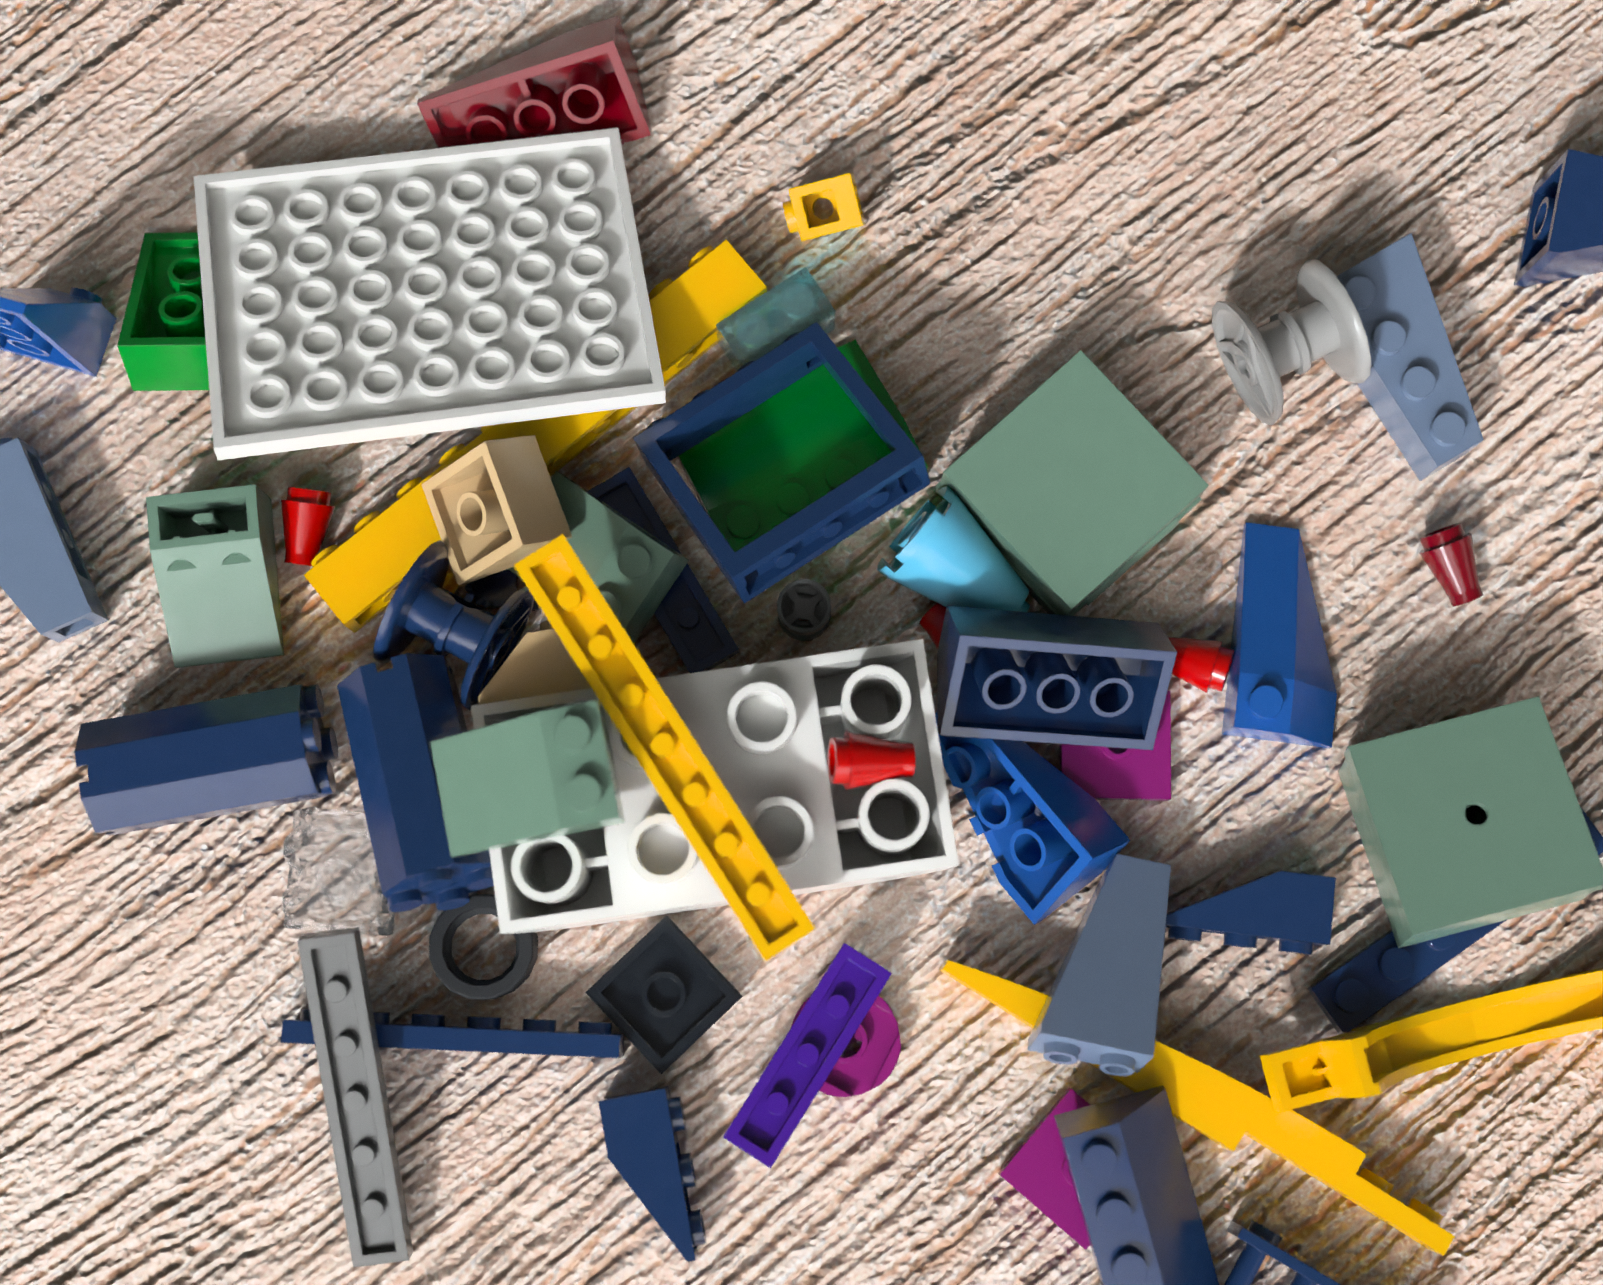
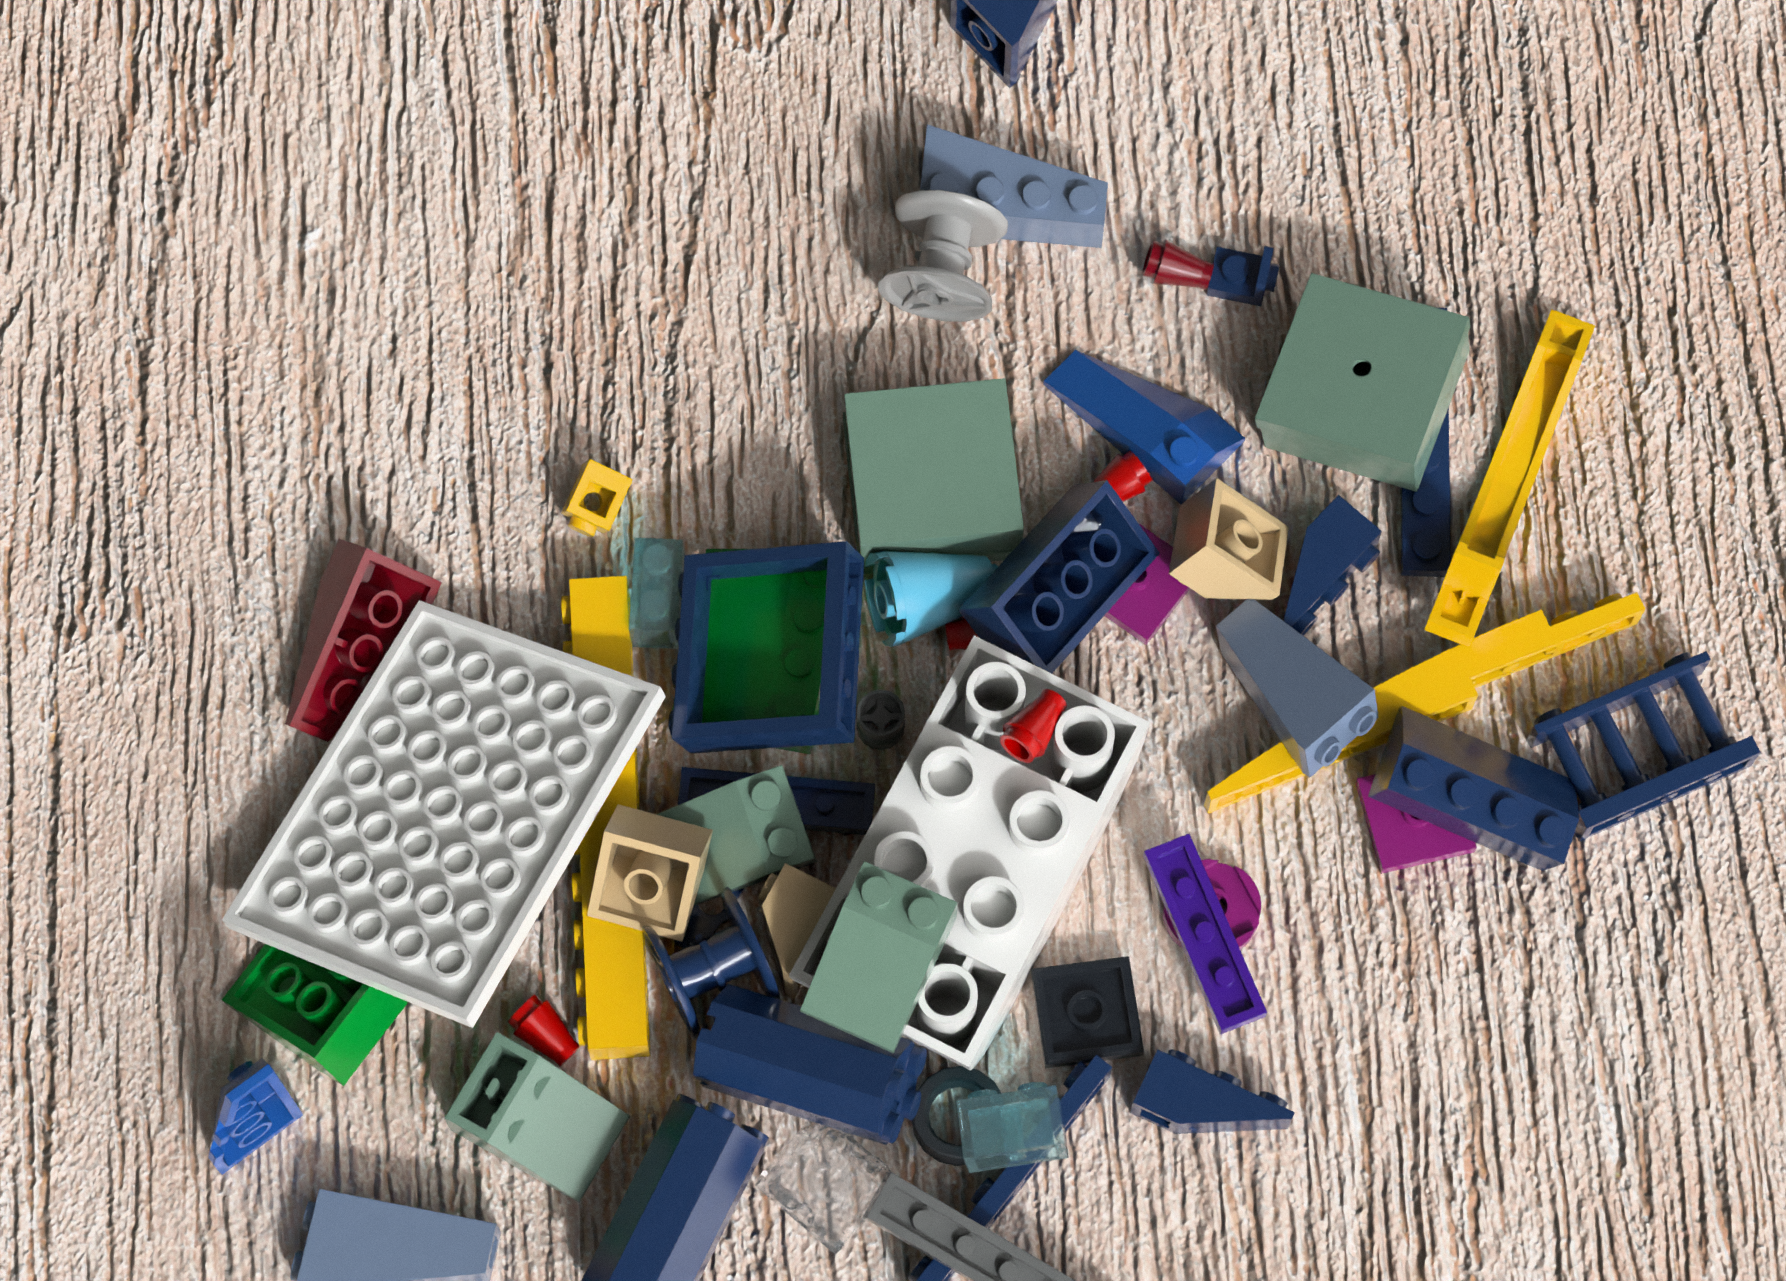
camera: 55 degrees left, 10 degrees down
(488, 1009) = (1012, 1127): none -> clear light blue brick
(665, 748) = (924, 849): yellow plate -> none
(1035, 818) = (1154, 669): blue wedge -> none
(1205, 810) = (1228, 546): none -> tan slope
(1492, 631) = (1242, 275): none -> dark blue bracket

